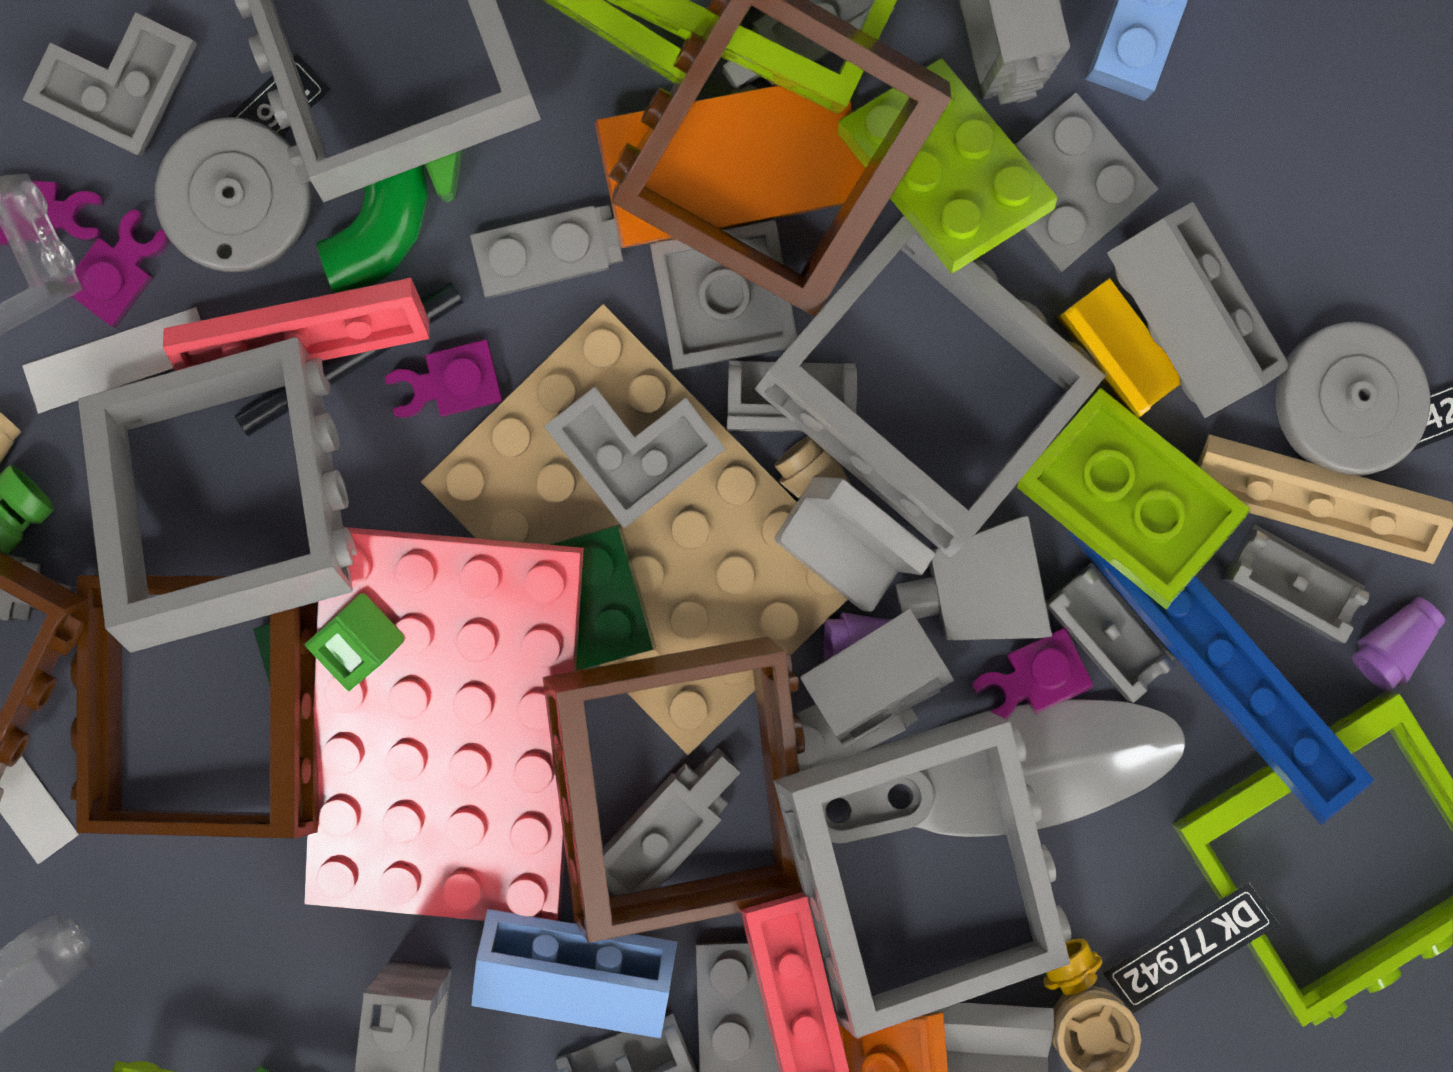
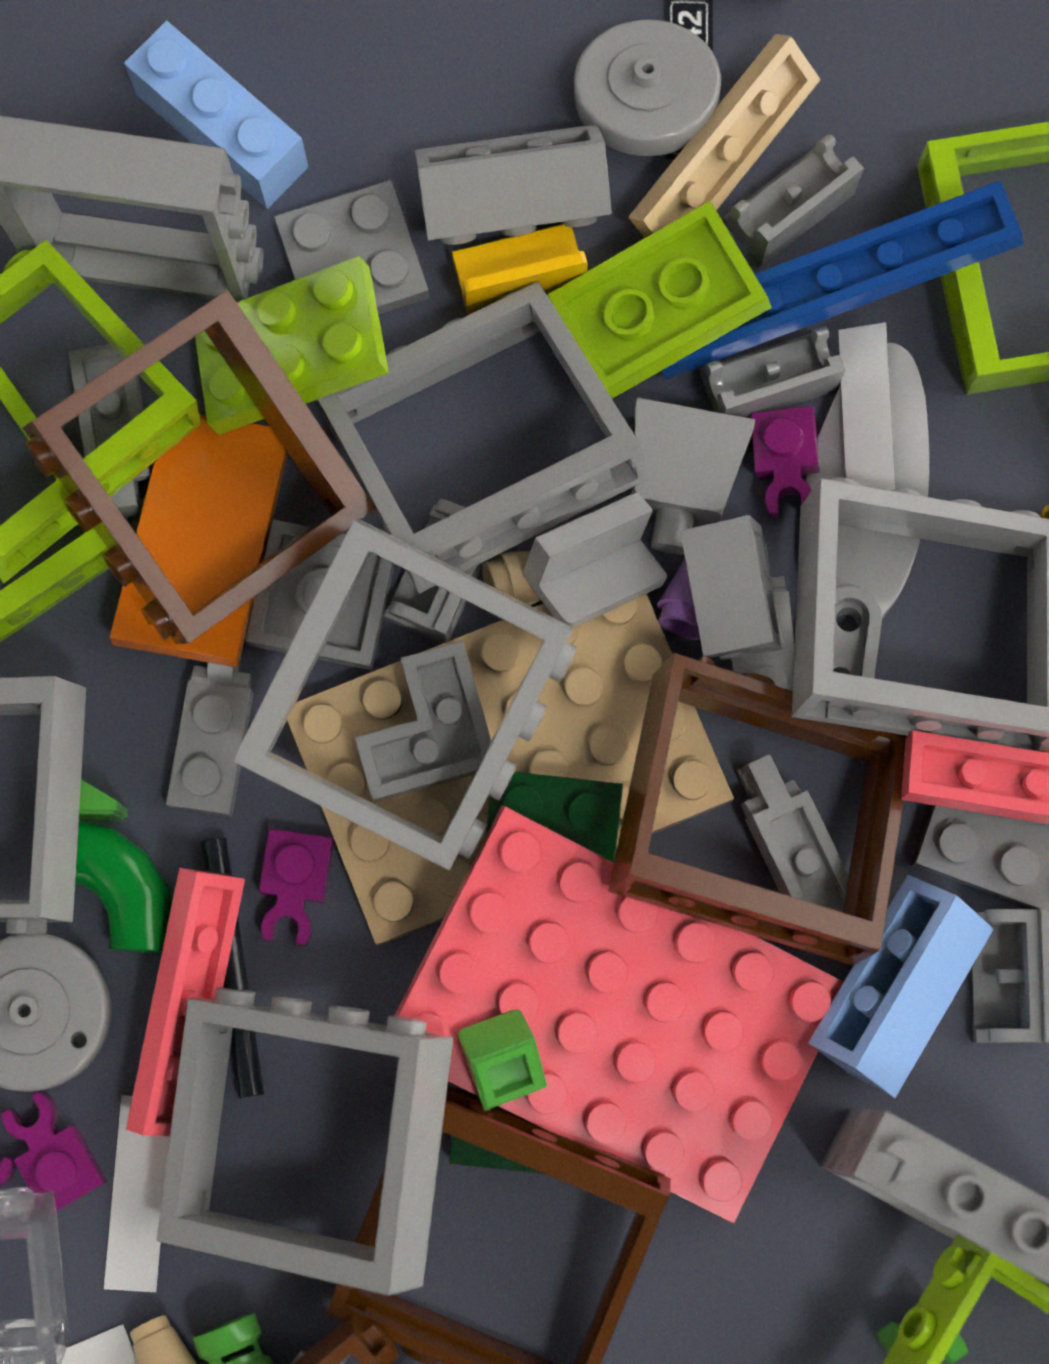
camera: 65 degrees left, 10 degrees down
(609, 530) = (494, 770): none -> light grey window
(1108, 737) = (867, 406): none -> white sticker
(1397, 645) = (881, 134): medium lavender cone -> none

